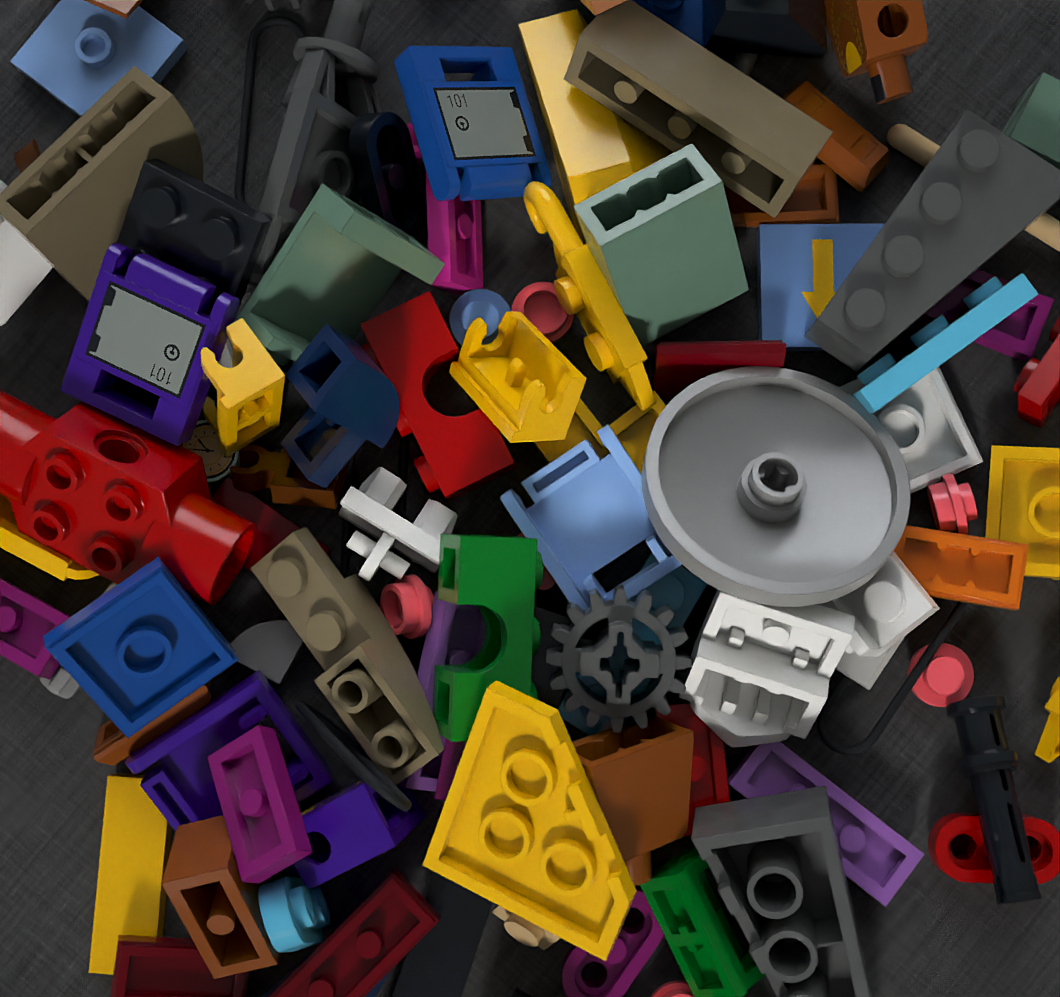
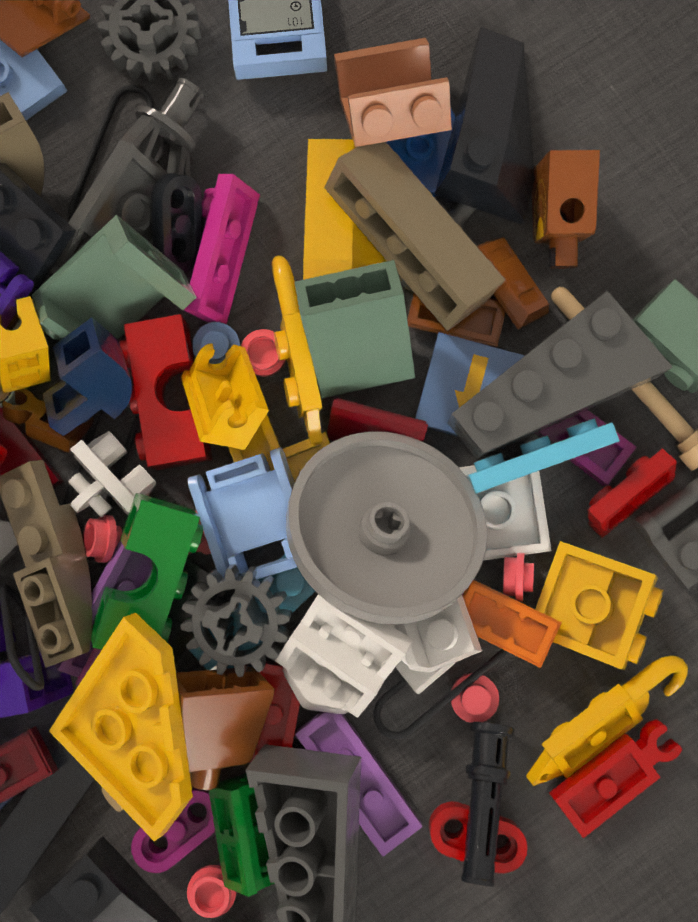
camera: 15 degrees right, 0 degrees up
(472, 125) = (249, 205): blue container -> none

